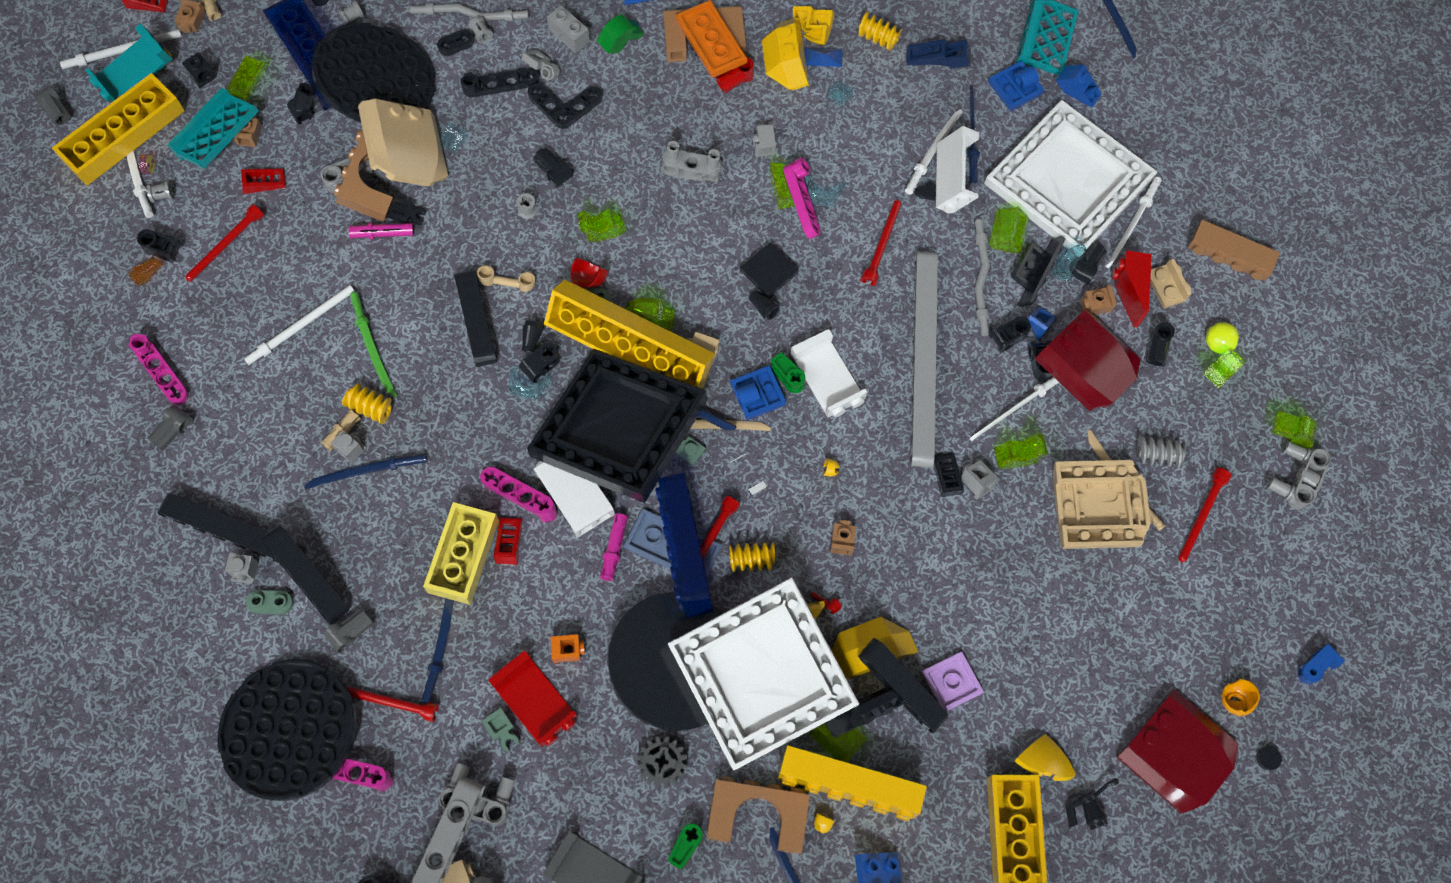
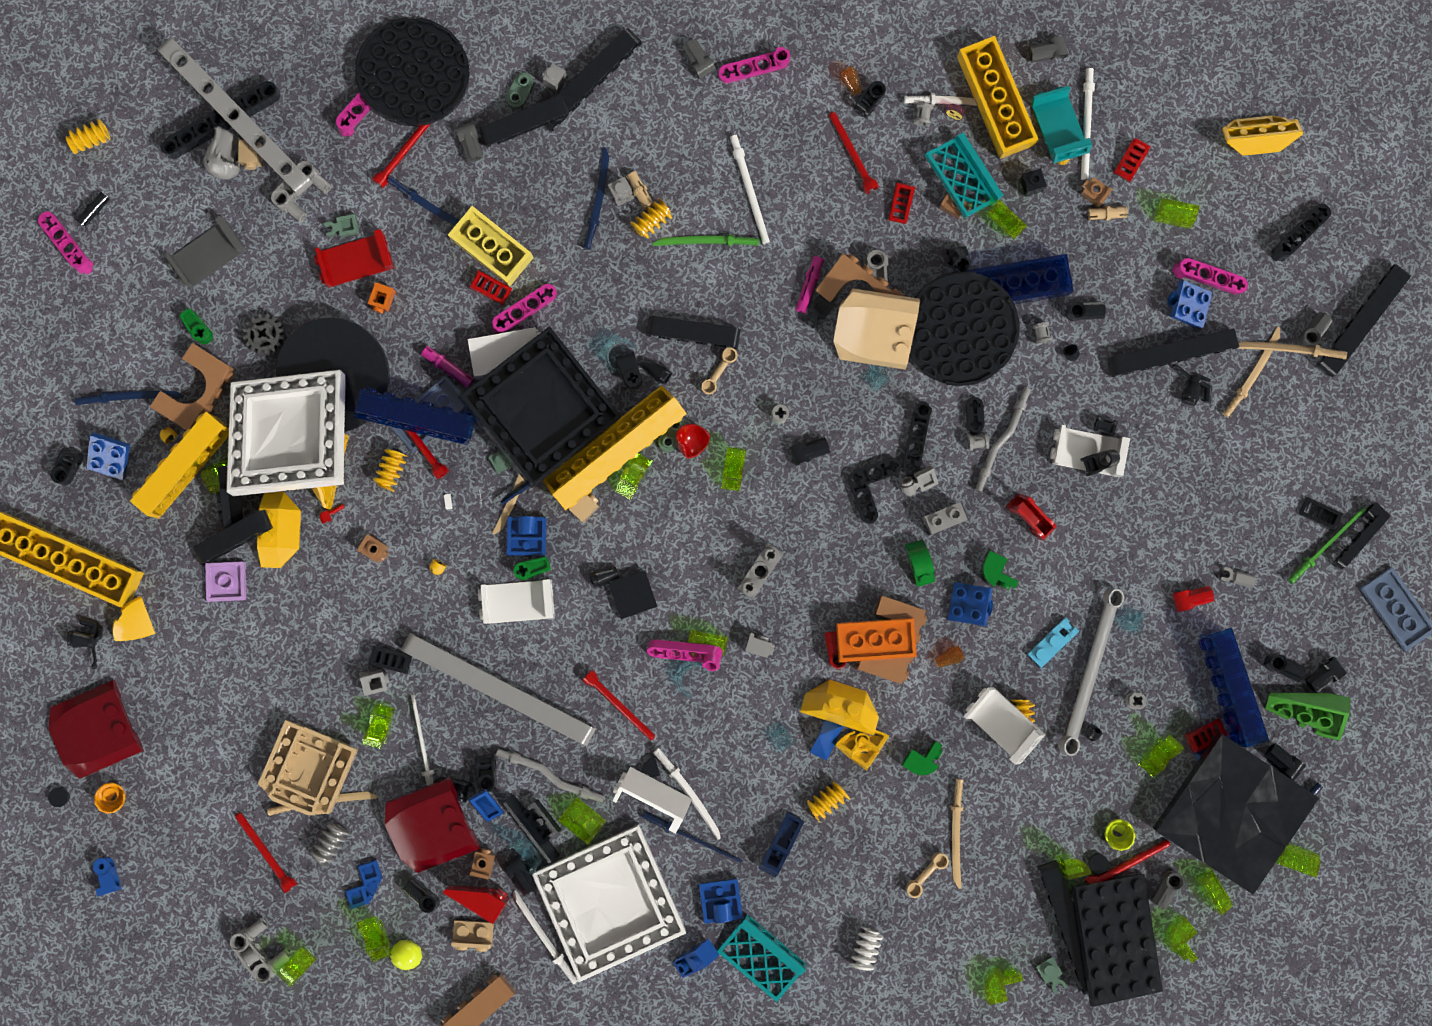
camera: 115 degrees right, 15 degrees up
(1188, 402) = (371, 878): none -> blue tile

